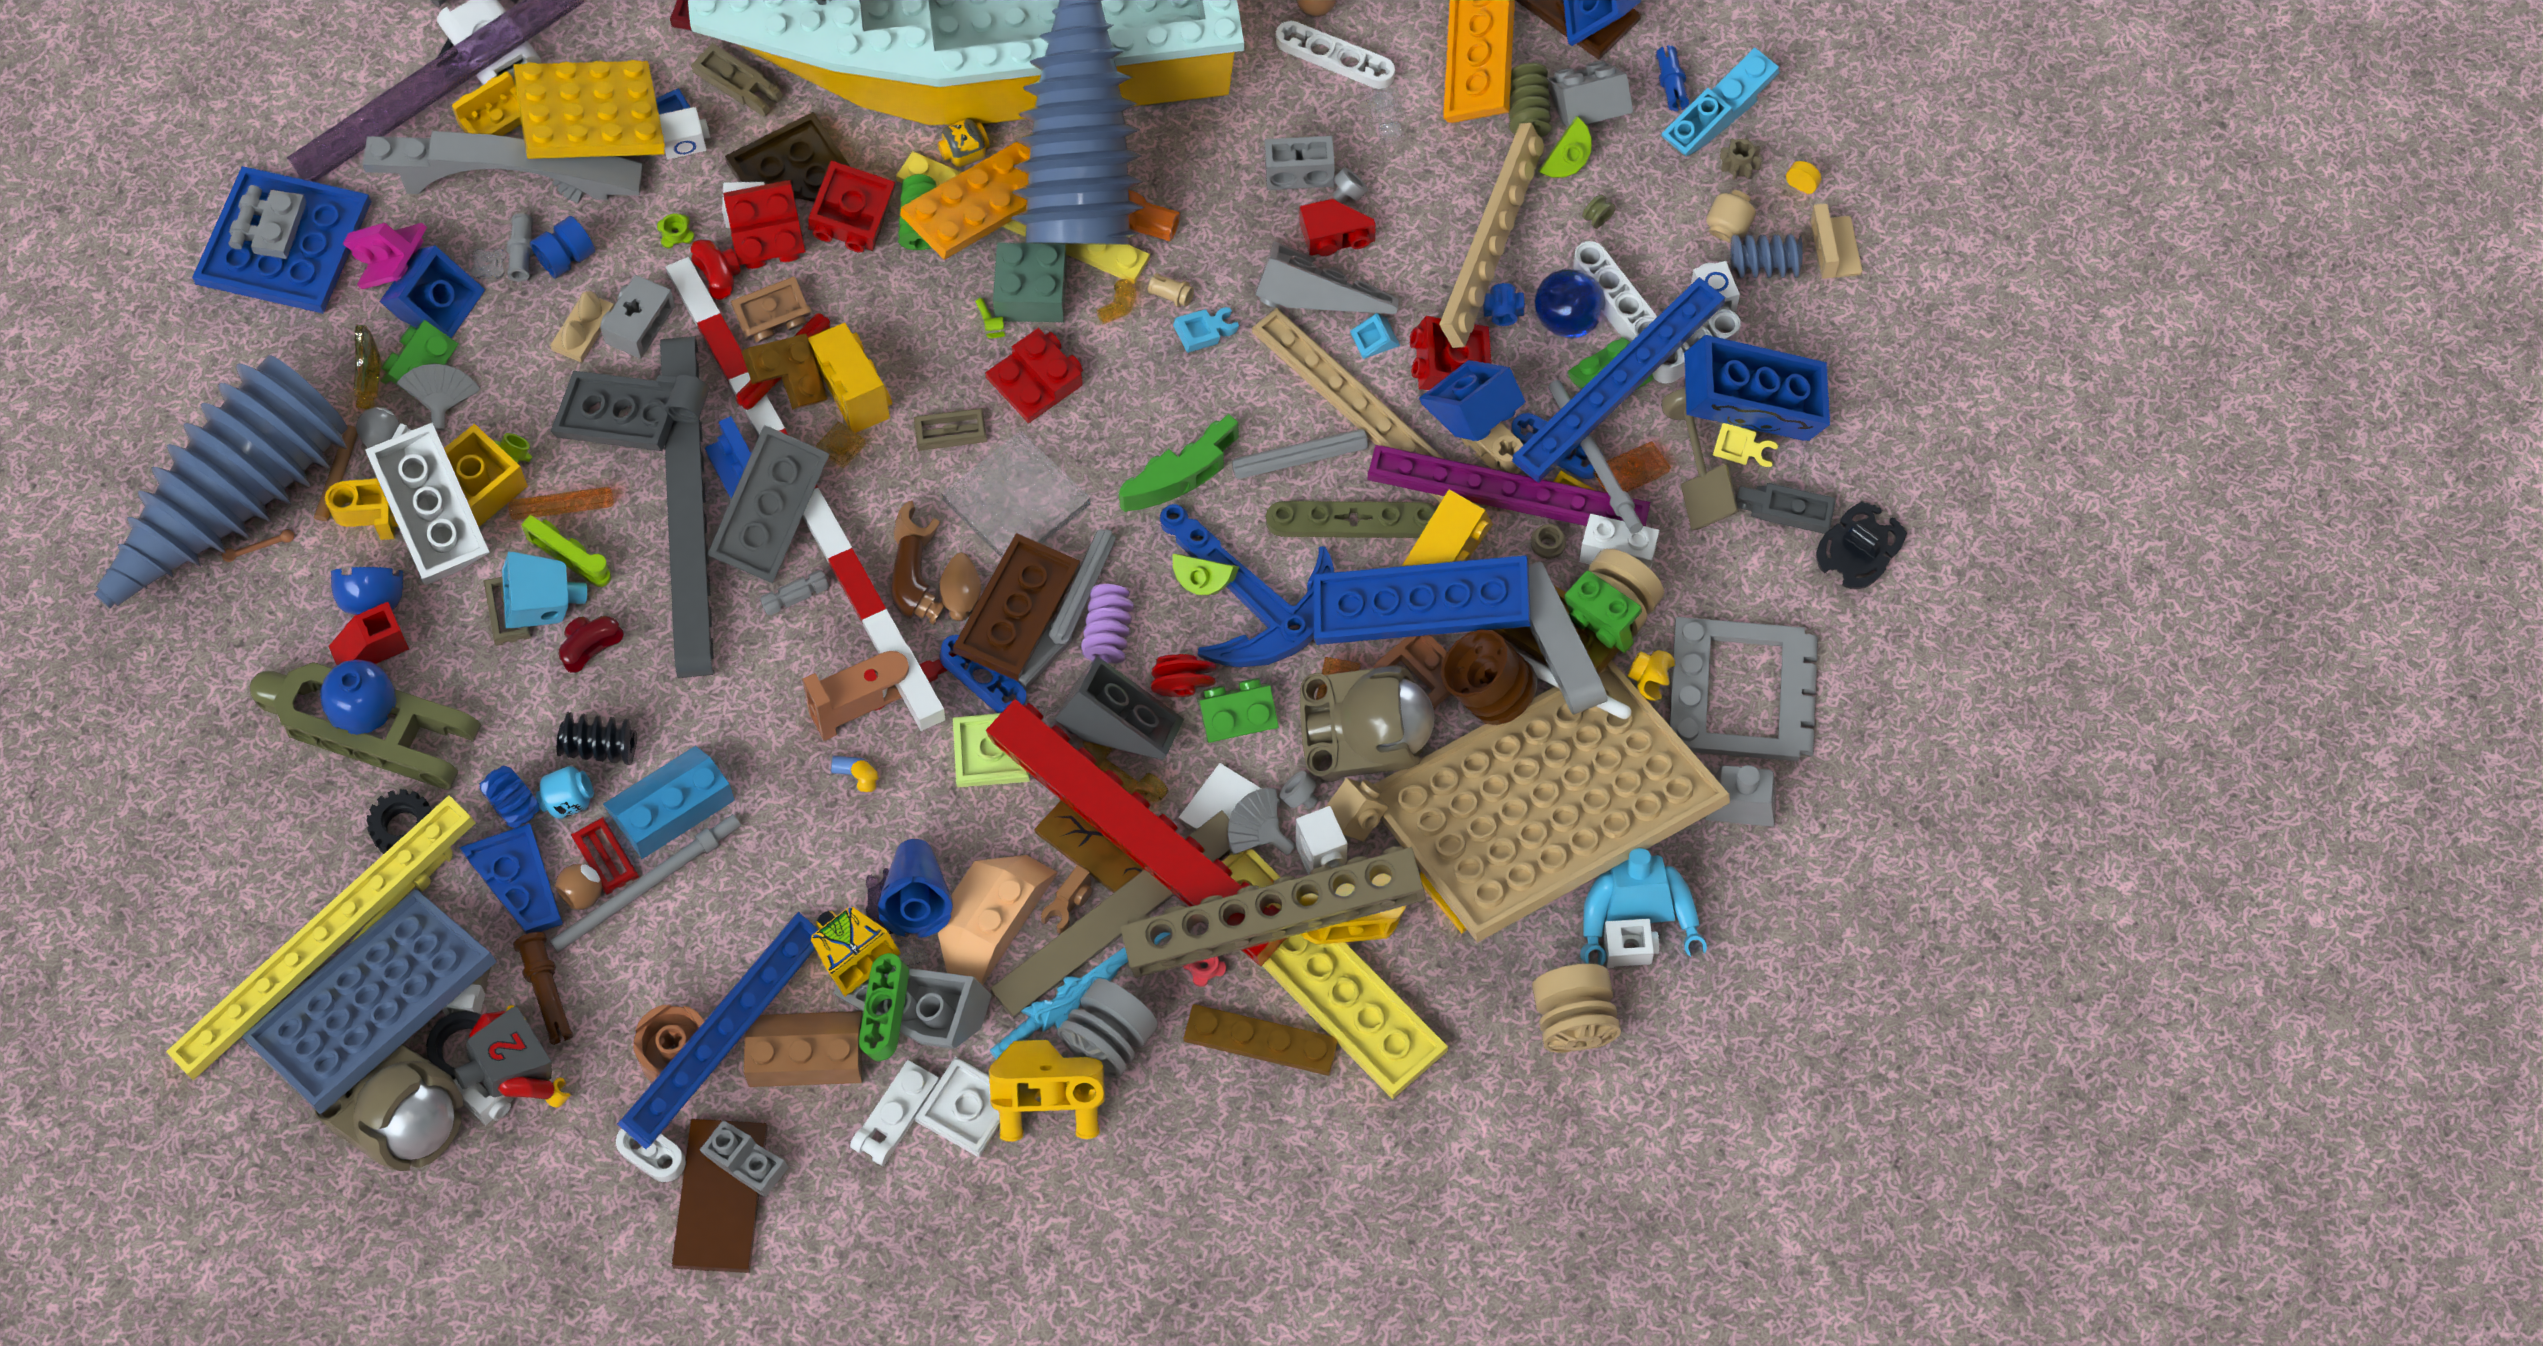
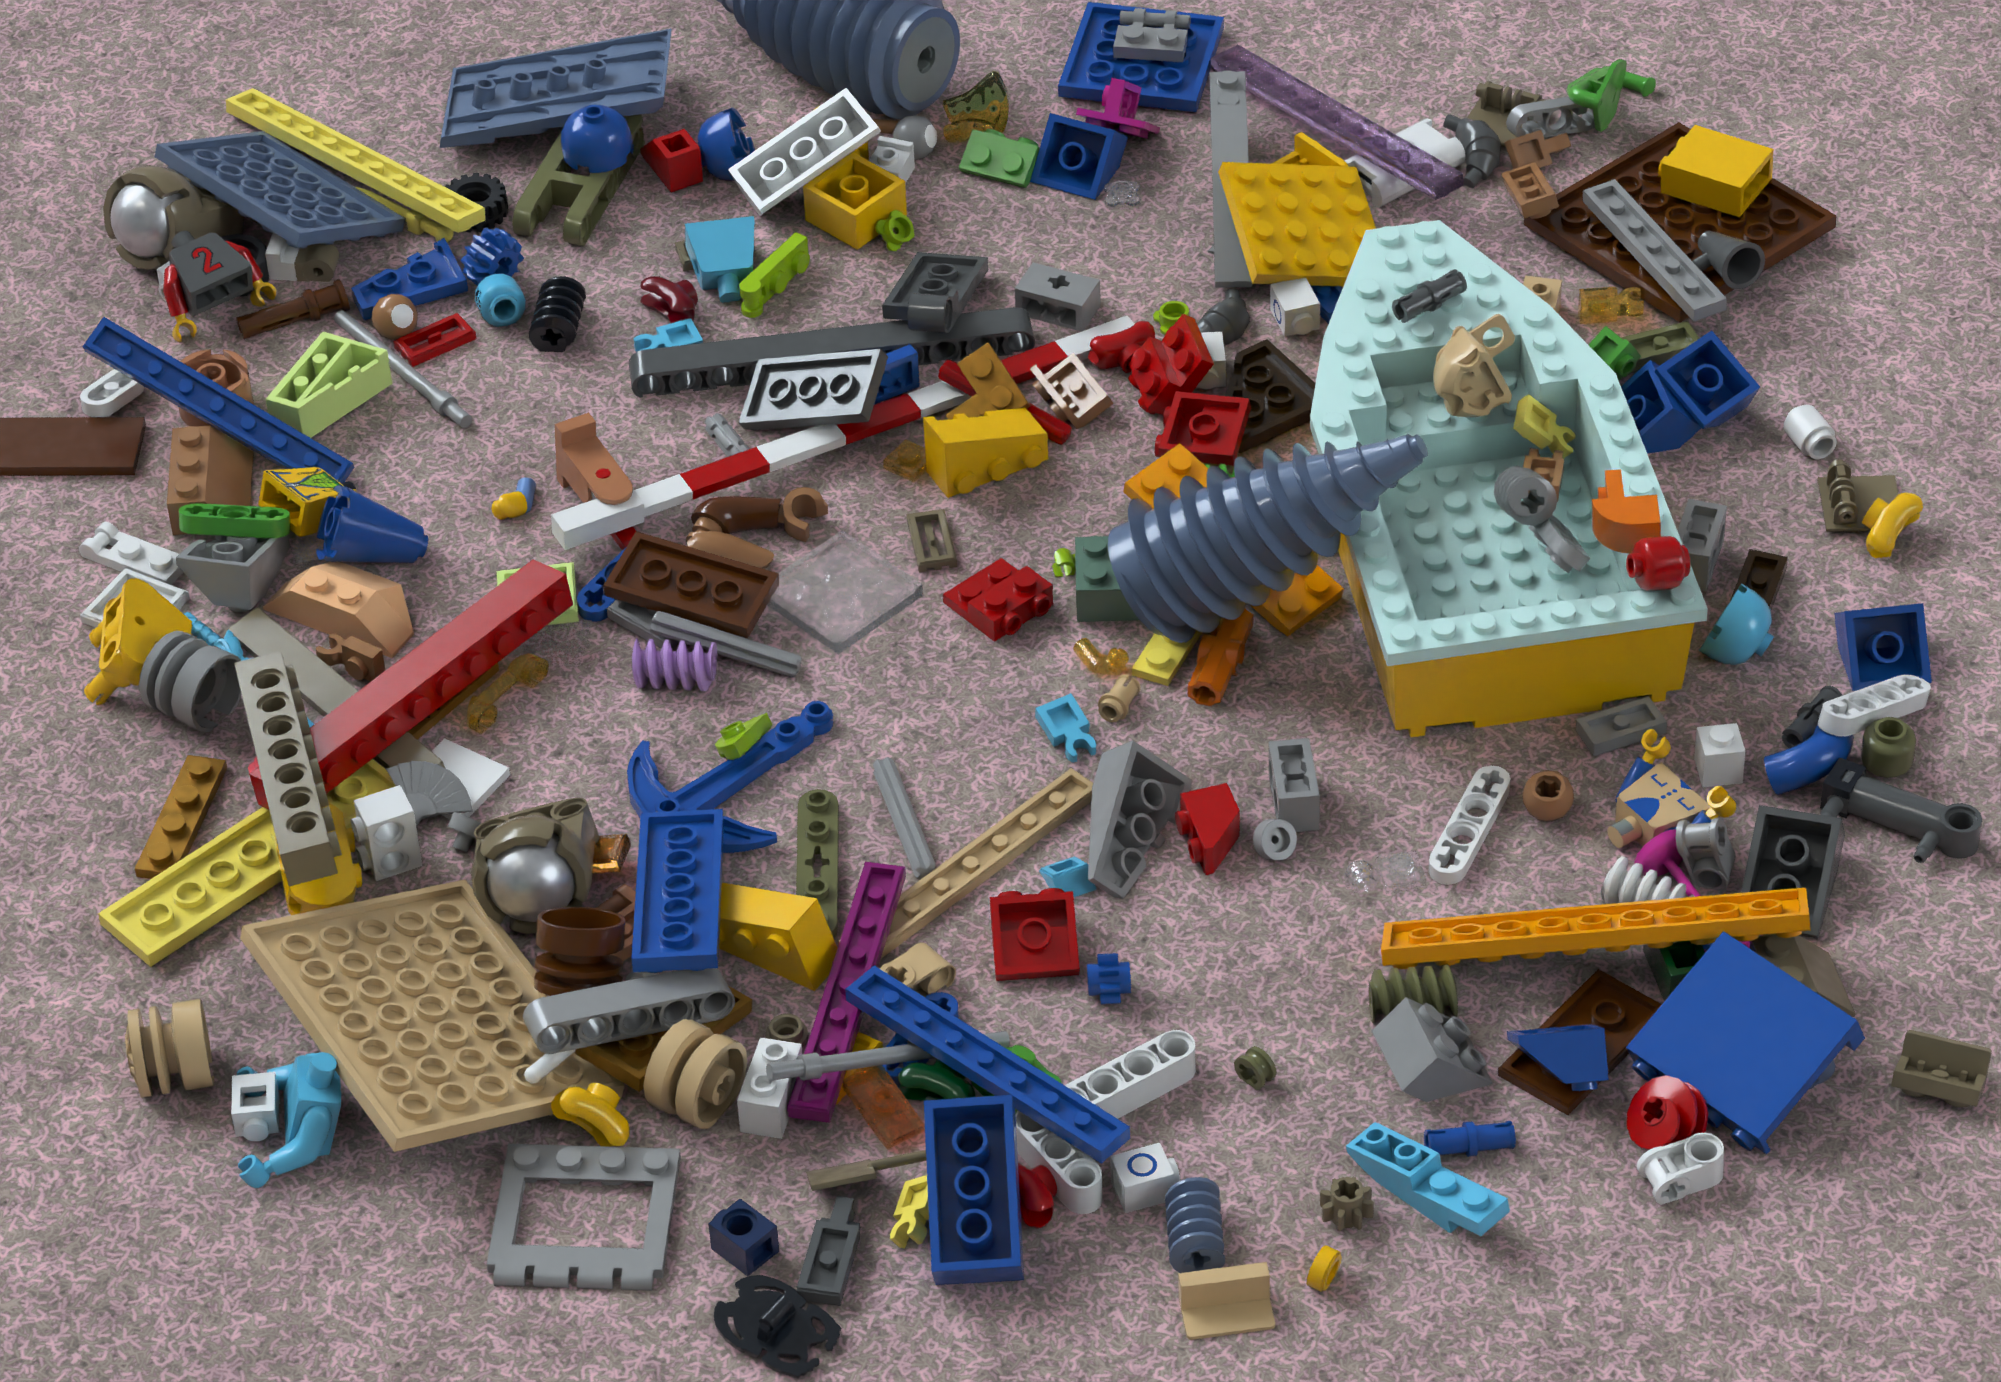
camera: 90 degrees right, 20 degrees down
(247, 744) = (546, 87): none -> sand blue piece
(285, 536) = (799, 102): nougat hinge -> none
(438, 389) = (965, 173): light grey hand -> none
(519, 247) = (1142, 212): light grey pin -> none
(560, 248) = (1139, 235): blue wheel -> none
(561, 503) = (836, 272): clear orange axle -> none
(581, 327) = (1062, 257): tan tile -> none
(645, 639) = (669, 335): none -> medium azure plate
(670, 801) = (485, 371): dark azure slope -> none
(681, 942) = (329, 383): none -> yellowish green wedge
(686, 194) = (1227, 316): none -> dark grey piece
(744, 1158) = (95, 449): light grey slope -> none
(1118, 713) = (560, 671): dark grey slope -> none
(1173, 476) = (871, 715): bright green slope -> none
(1177, 675) = (610, 726): red piece -> none
(1238, 710) = (573, 771): bright green bracket -> none
(1357, 808) = (432, 863): tan brick -> none
(1474, 399) = (949, 930): blue slope -> none
(1491, 235) = (1200, 954): tan plate -> none
(1569, 303) = (1106, 1024): clear blue cylinder -> none
(1570, 151) = (1340, 1036): lime plate -> none
(1602, 610) = (635, 1038): bright green bracket -> none
(1616, 426) = (933, 1082): none -> dark green piece
(1730, 215) = (1254, 1192): tan head -> none
(1750, 794) = (431, 1184): light grey torso -> none
(1780, 555) = (743, 1237): none -> dark blue brick

